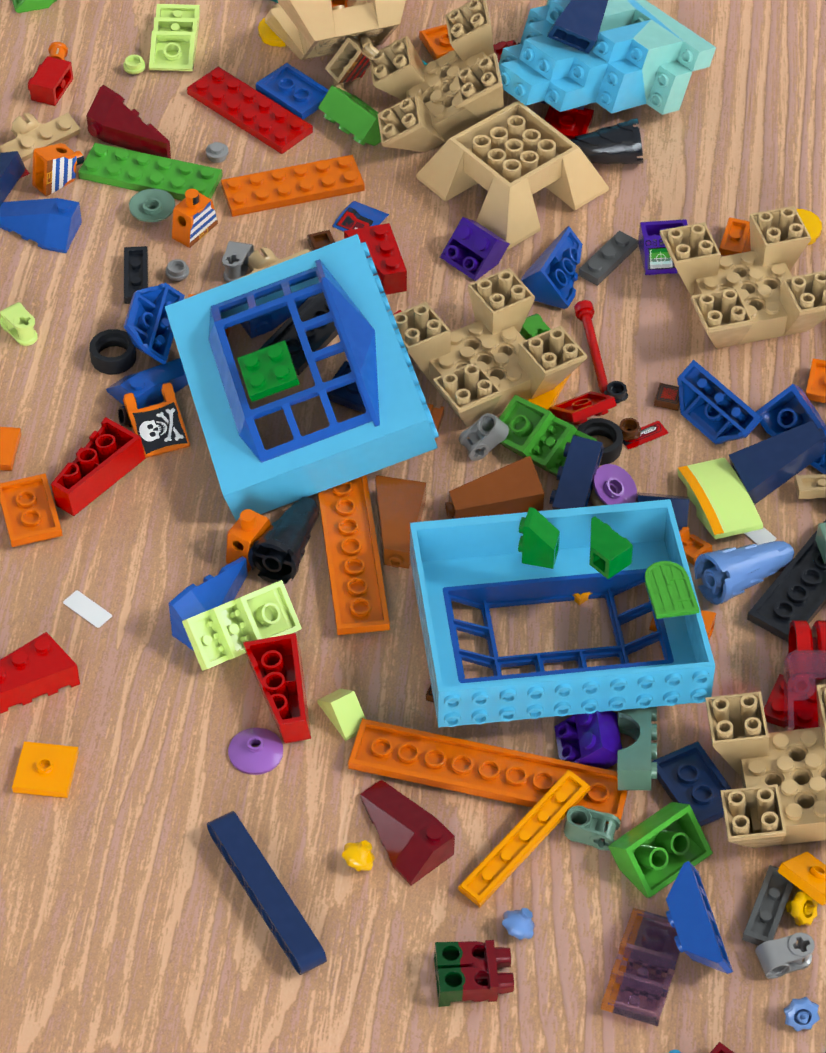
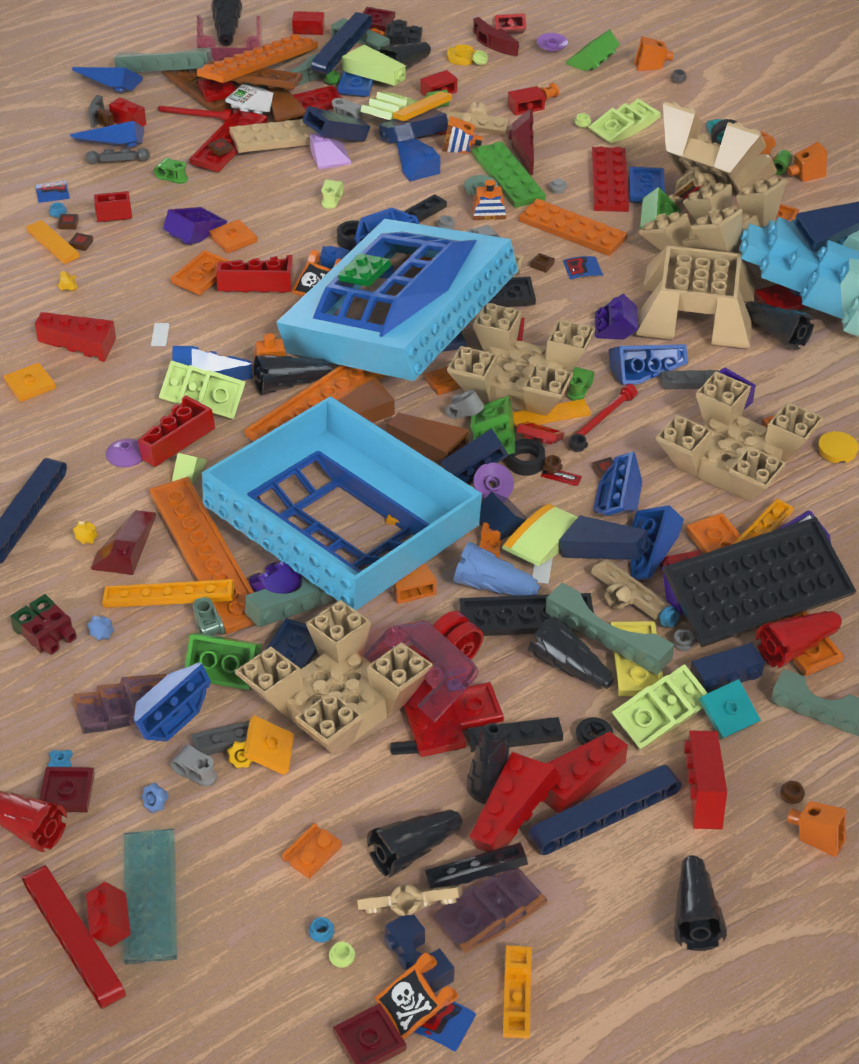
camera: 50 degrees right, 5 degrees down
(385, 256) = (557, 287): red wedge -> none
(539, 540) = (363, 445): green slope -> none
(608, 549) = (395, 481): green slope -> none
(670, 590) = (397, 529): bright green window -> none

